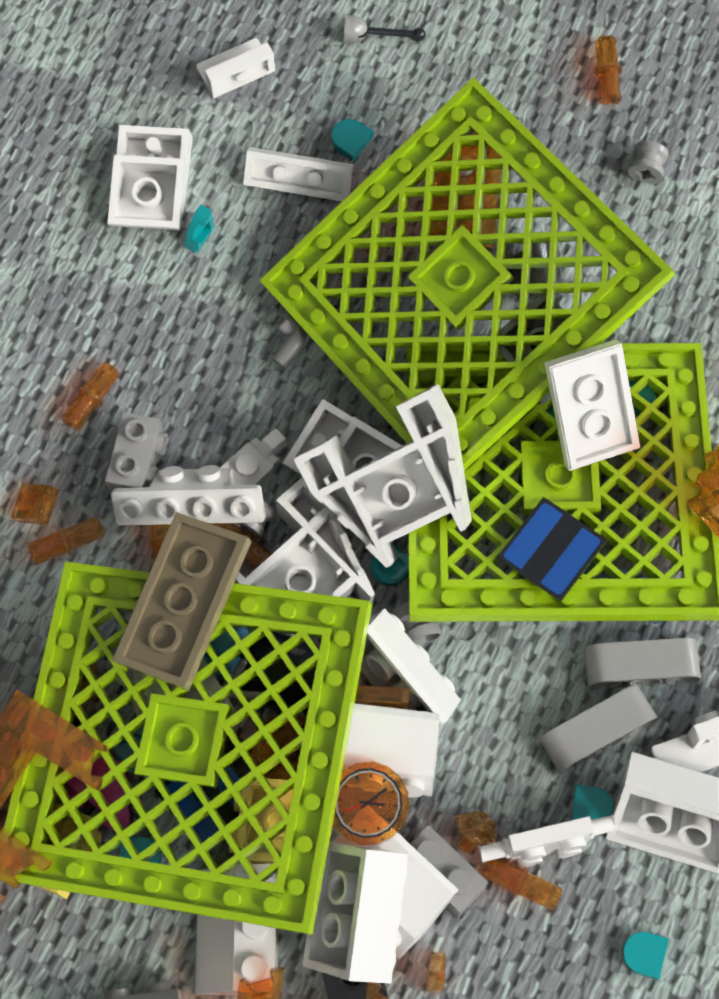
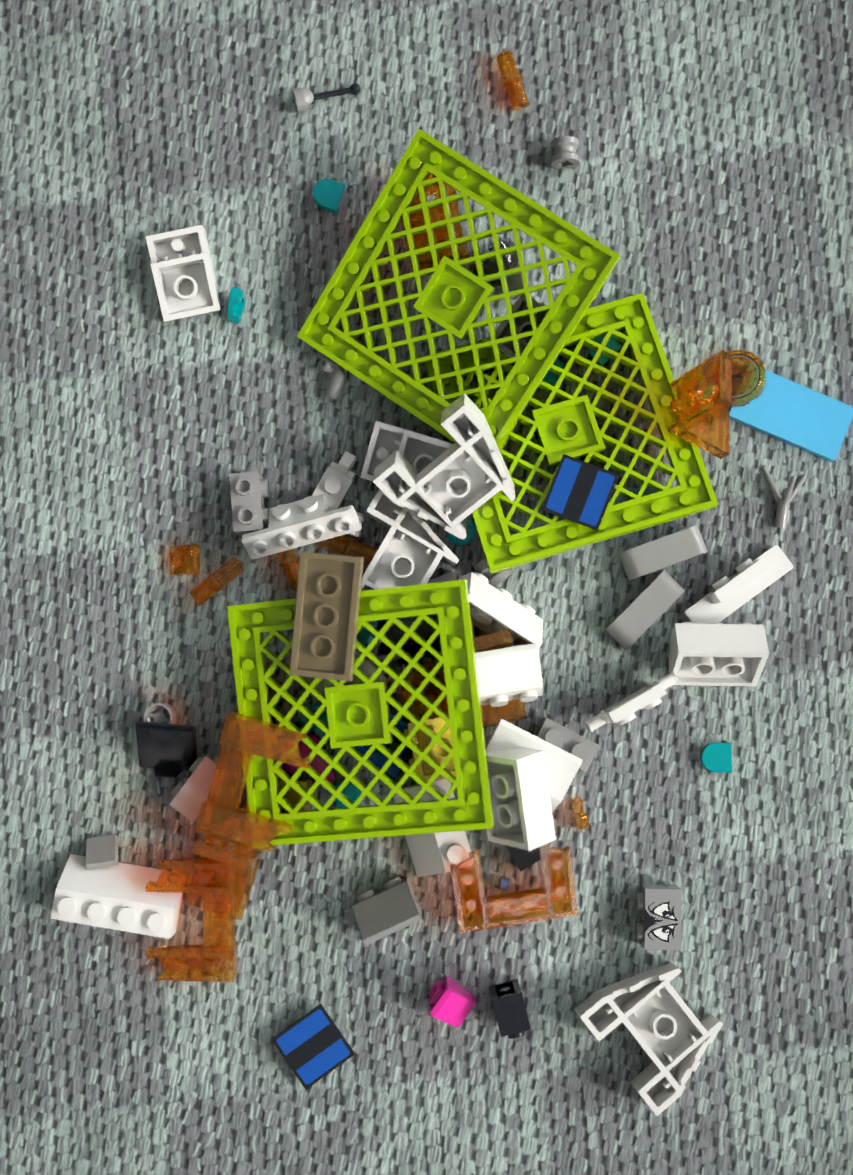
camera: 20 degrees left, 15 degrees up
(90, 396) = (197, 464): clear orange axle -> none
(236, 67) = (219, 157): white panel -> none
(297, 174) = (297, 238): white plate -> none
(370, 804) = (506, 720): clear orange tile -> none
(476, 830) = (578, 707): clear orange plant -> none
(522, 883) = (622, 735): clear orange axle -> none
(591, 802) = (653, 666): teal tile -> none
(592, 404) = (581, 372): white tile -> none

